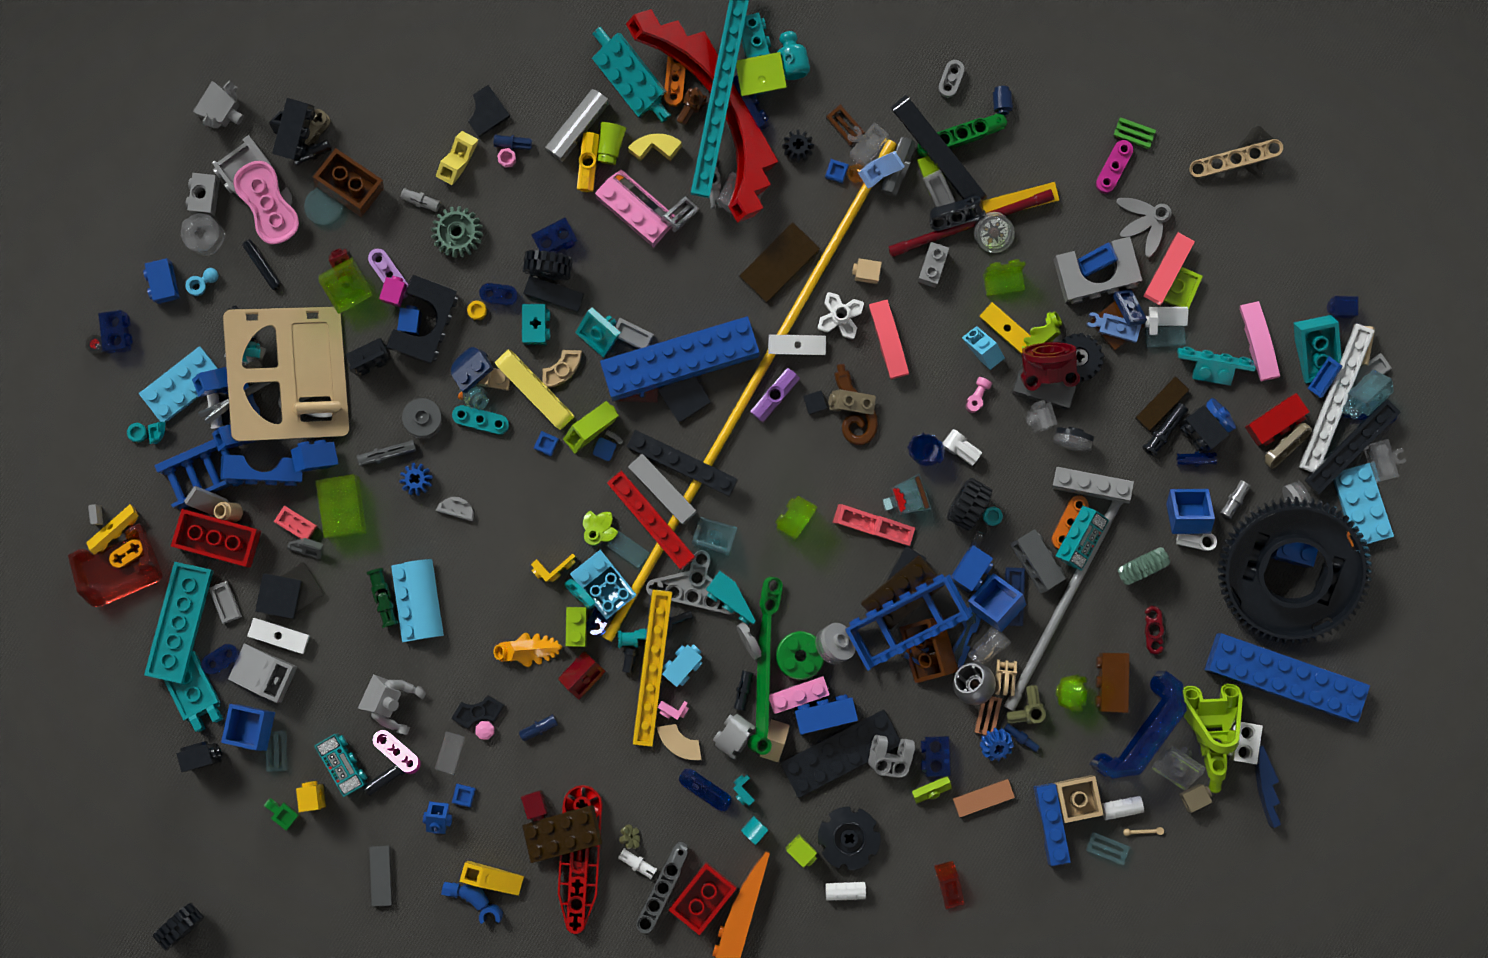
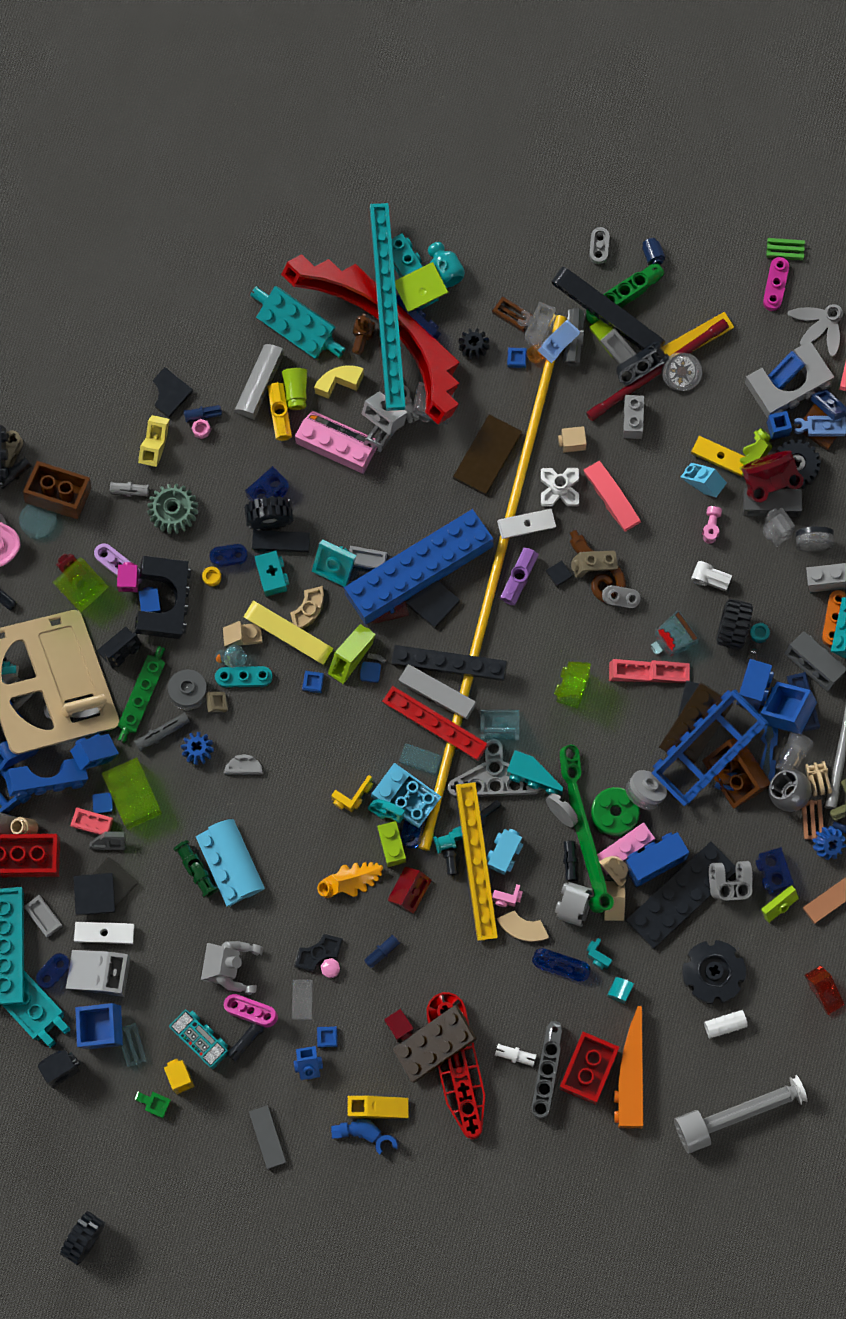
camera: 10 degrees left, 10 degrees down
(310, 507) = (102, 803): none -> blue piece
(377, 409) = (141, 694): none -> green plate
(447, 438) = (216, 702): none -> dark tan tile
(470, 368) = (221, 629): dark blue slope -> none
(600, 525) = (386, 743): lime plate -> none
(630, 837) = (501, 1030): olive plant -> none
(672, 87) = (343, 322): orange plate -> none
(681, 188) = (375, 411): none -> light grey brick
(783, 714) = (616, 869): none -> tan tile
(801, 851) = (672, 995): lime brick -> none
(869, 443) = (622, 596): none -> light grey plate
(926, 449) = (678, 586): clear blue hair -> none
(1004, 278) = (703, 410): clear neon green bracket -> none
(1073, 314) = (779, 425): none -> blue brick

